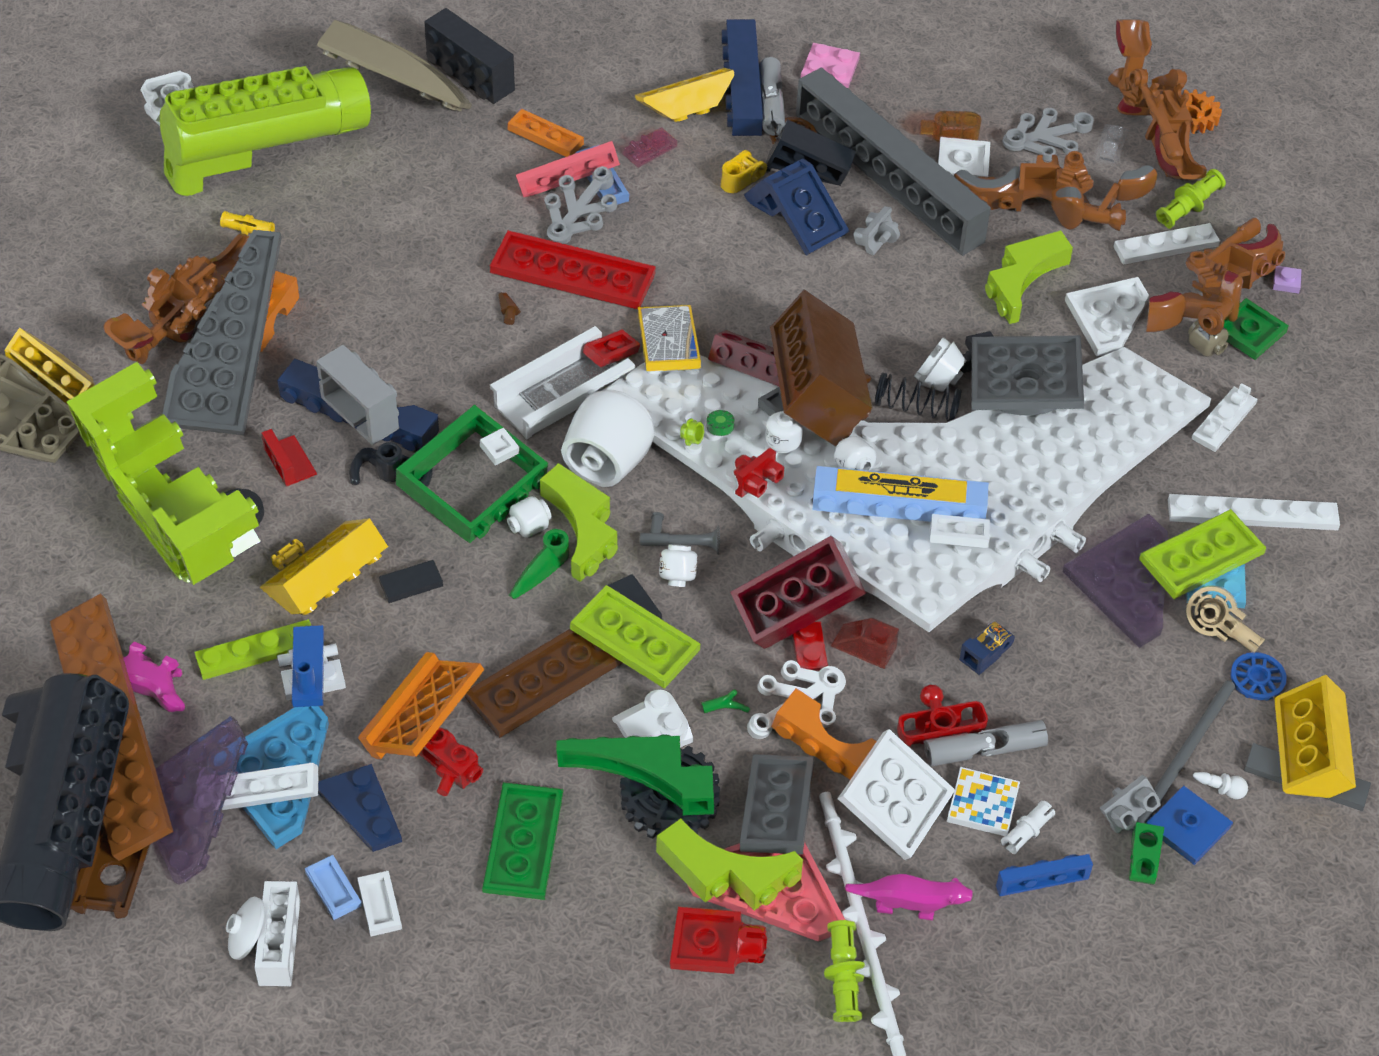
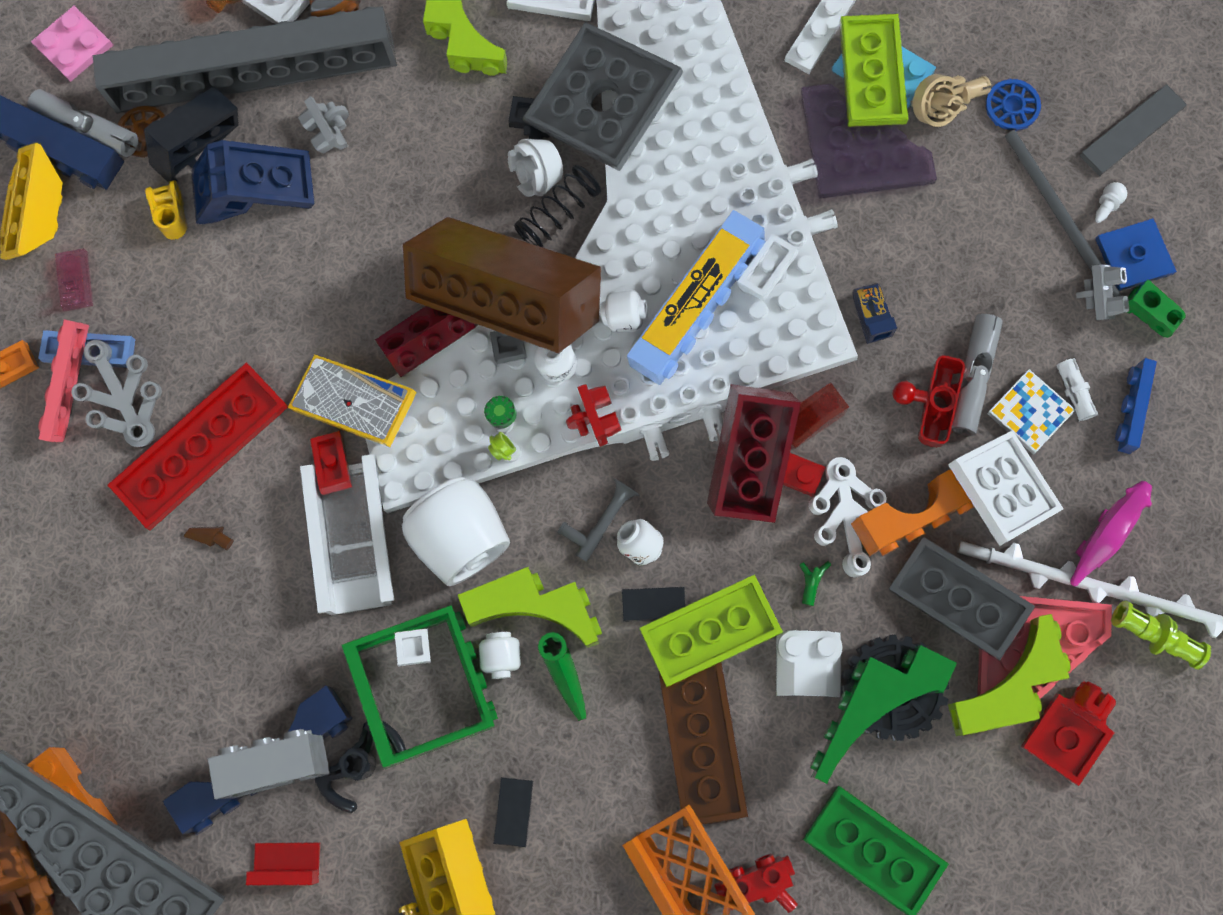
camera: 55 degrees left, 25 degrees up
(1314, 740) = (1110, 102): yellow slope -> none

